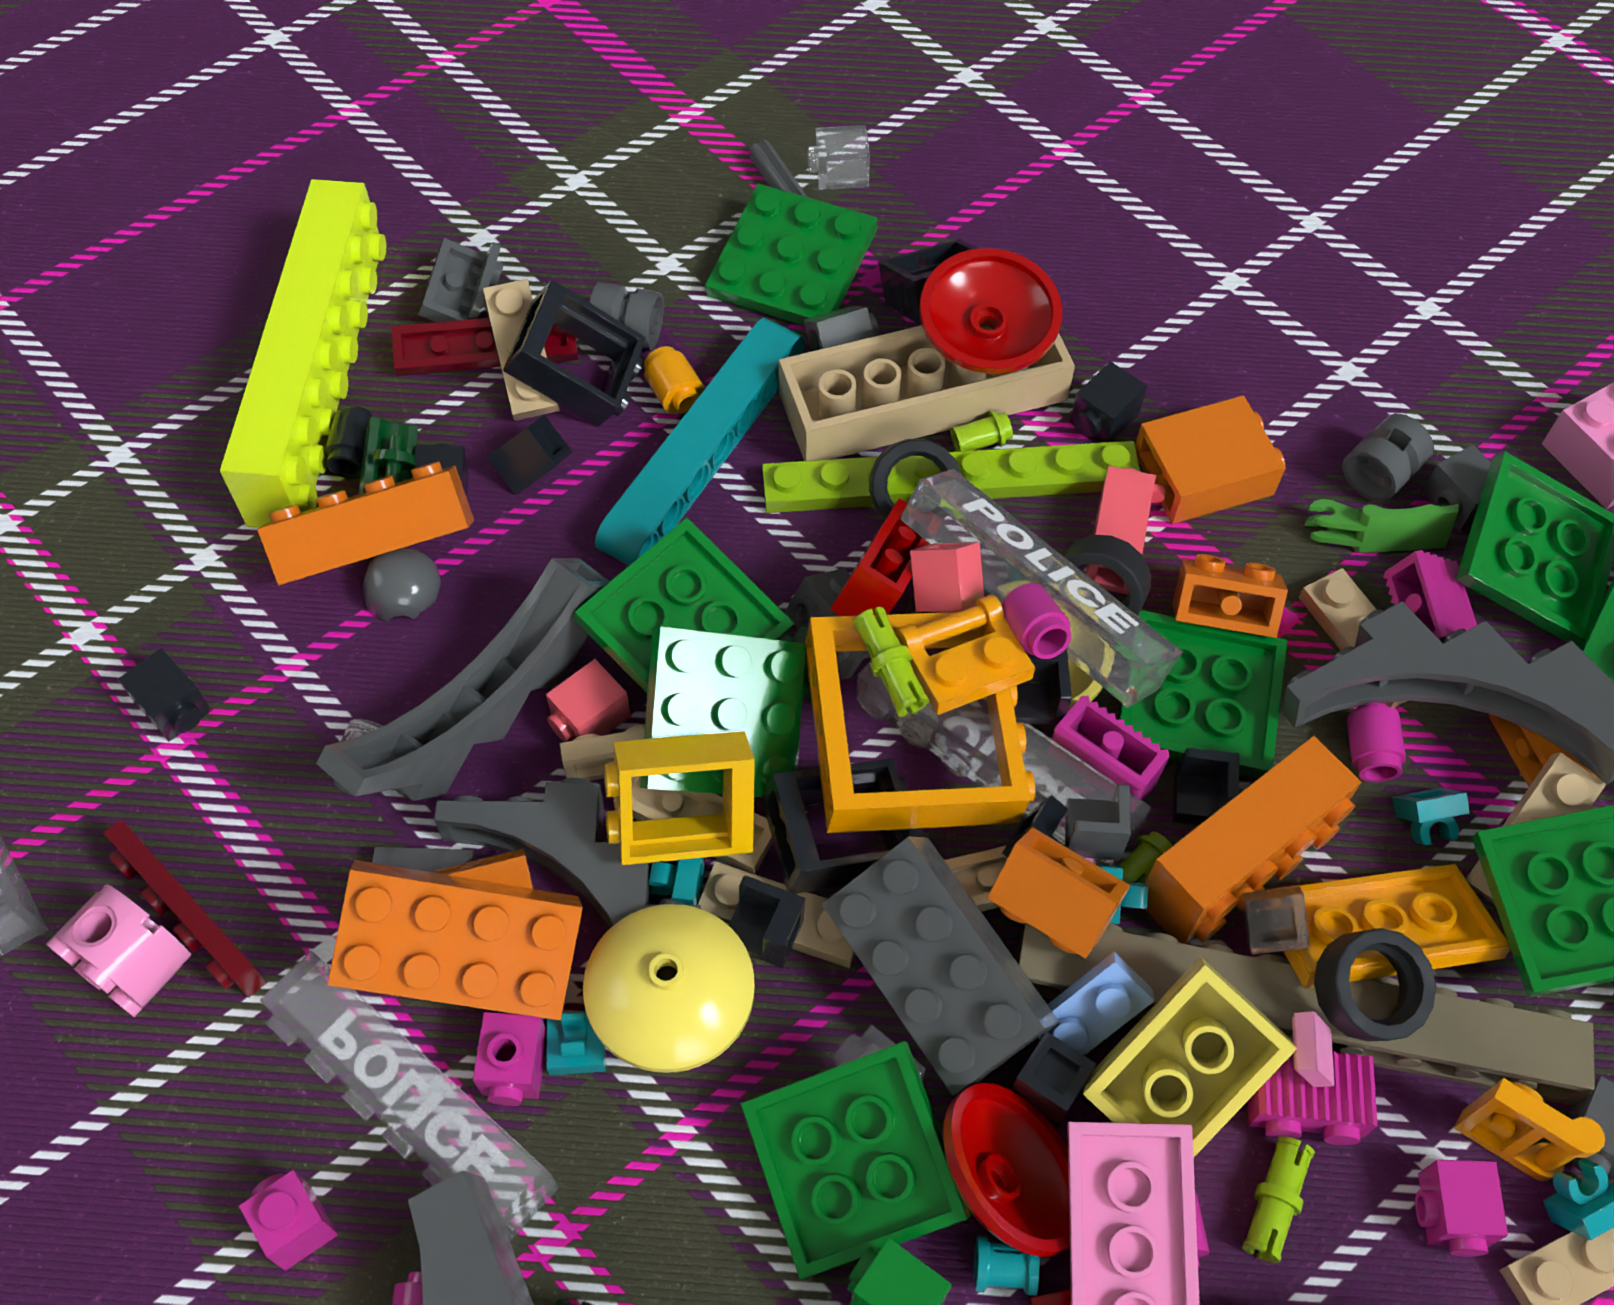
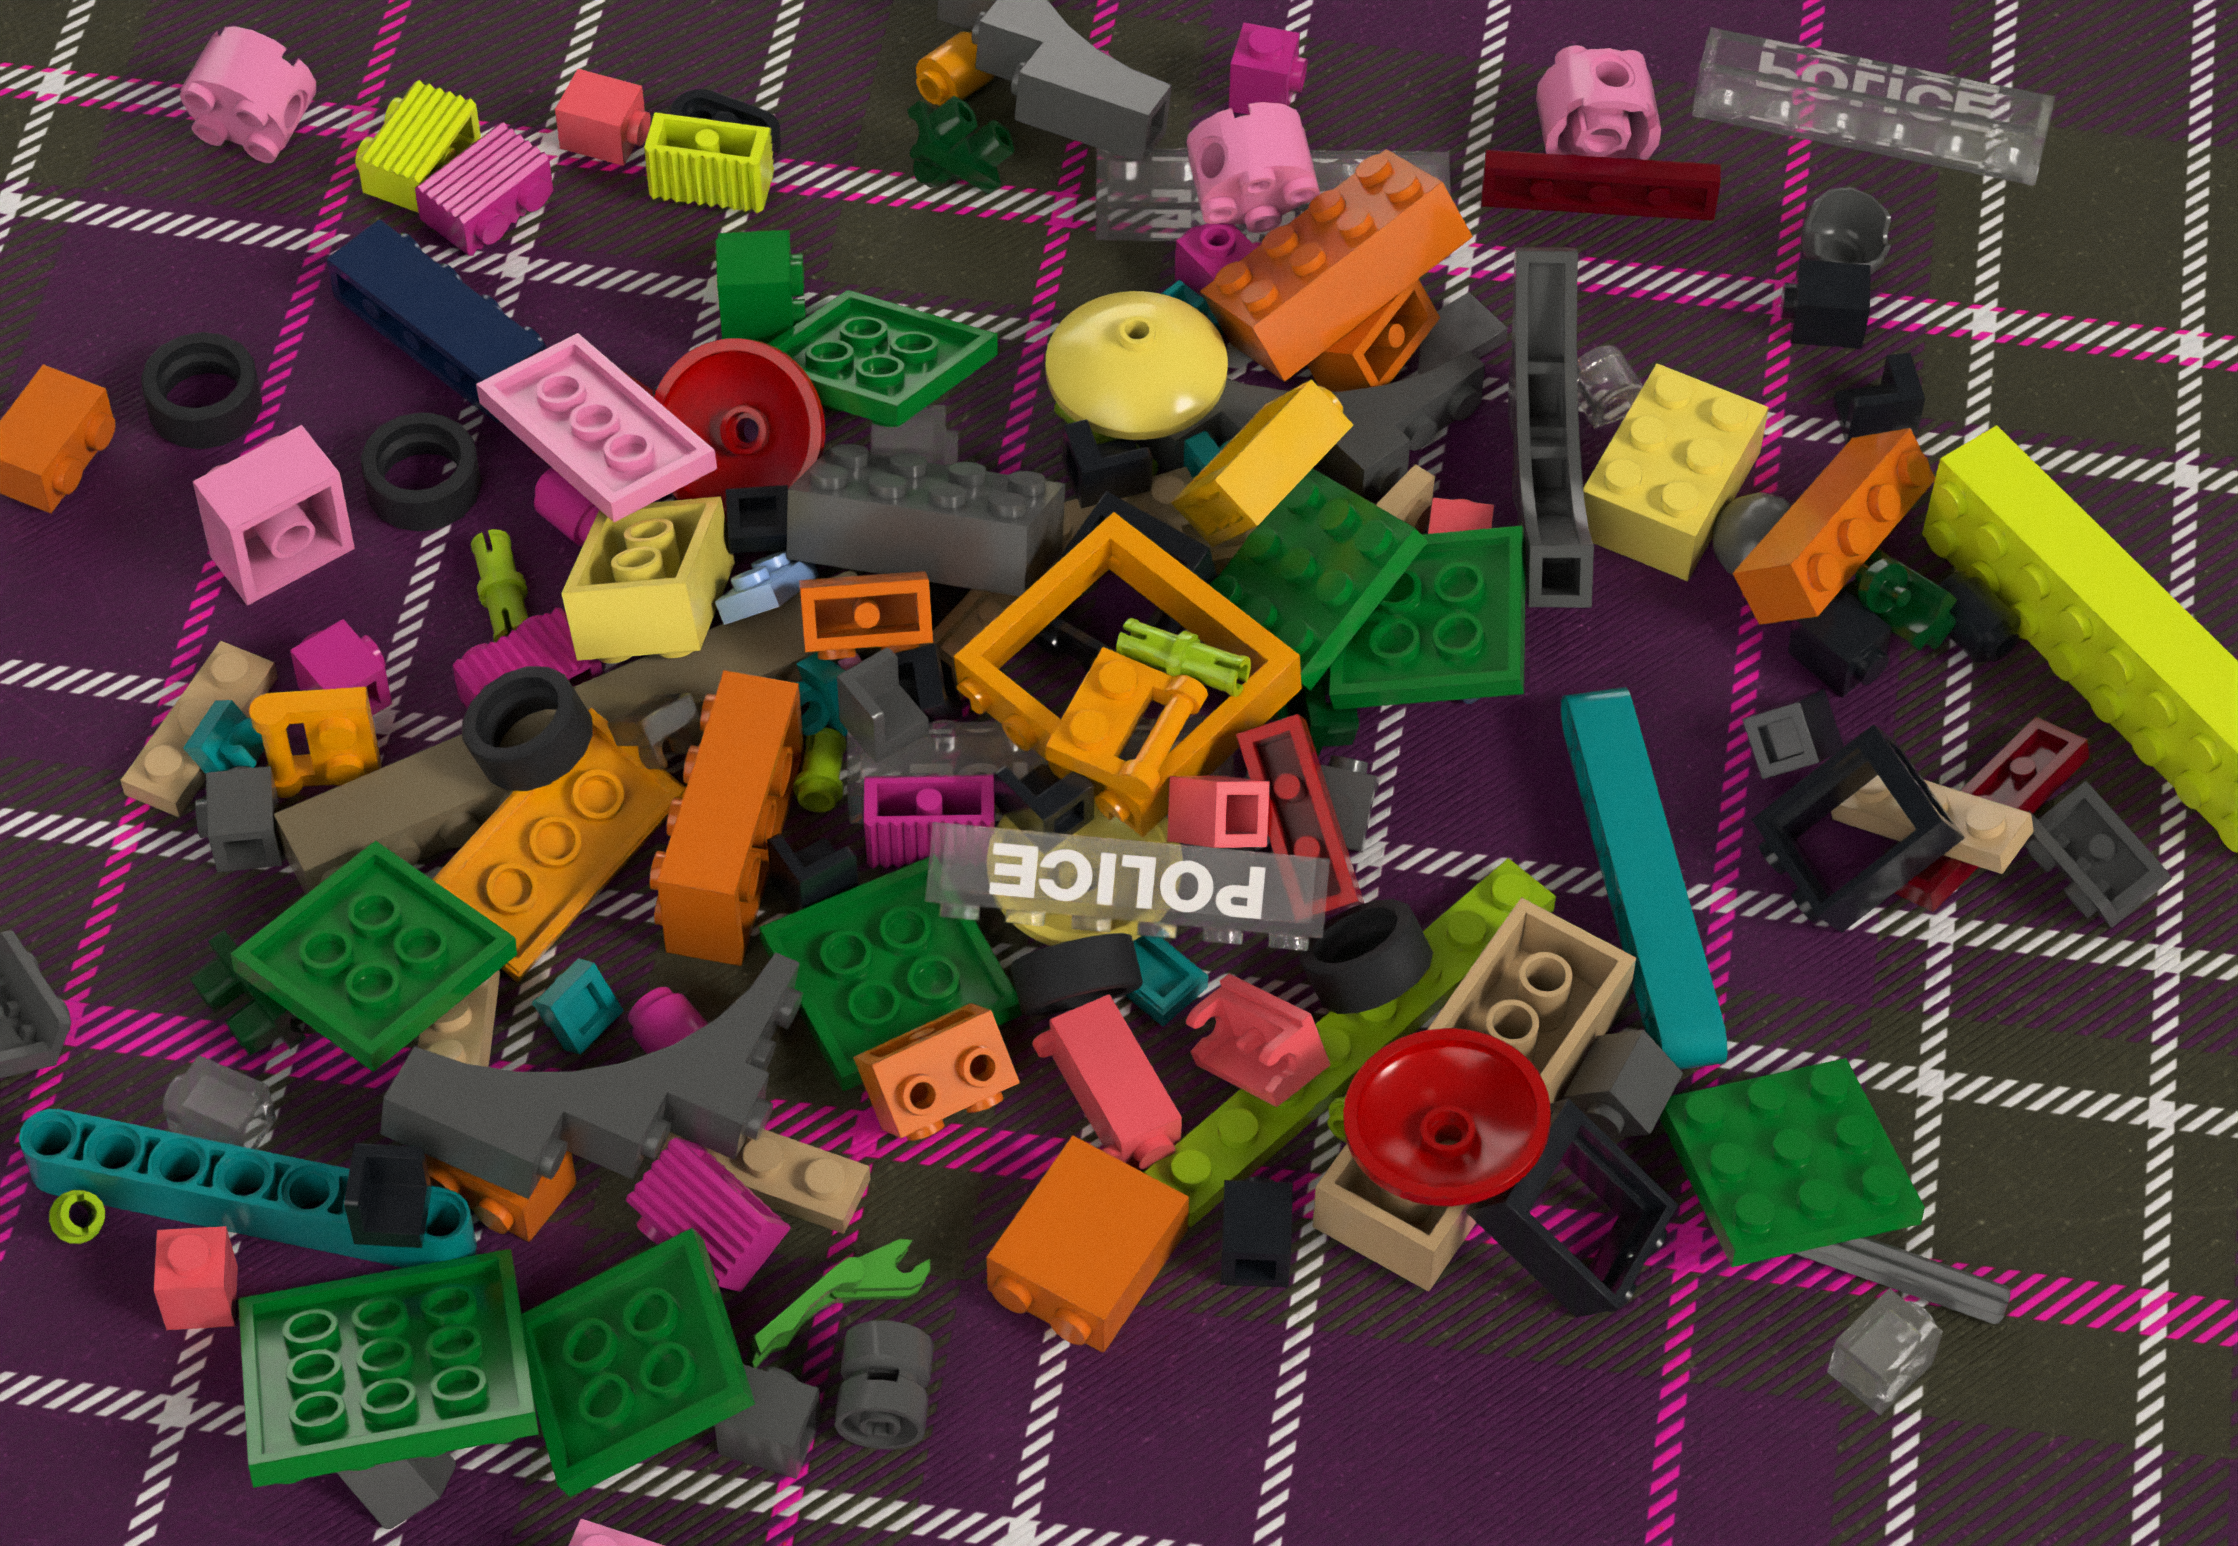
camera: 140 degrees right, 5 degrees down
(94, 732) = (1846, 229): none -> dark grey hair
(224, 609) = (1886, 407): none -> black panel
(397, 649) = (1672, 470): none -> light yellow brick
(437, 1052) = (1251, 166): none -> bright pink brick
(639, 310) = (1879, 939): dark grey wheel -> none
(672, 379) = (1745, 914): light orange brick -> none
(1025, 478) = (1257, 1041): none -> coral hinge
(1037, 621) = (1084, 791): dark pink brick -> none
(1314, 1049) = (547, 642): bright pink tile -> none

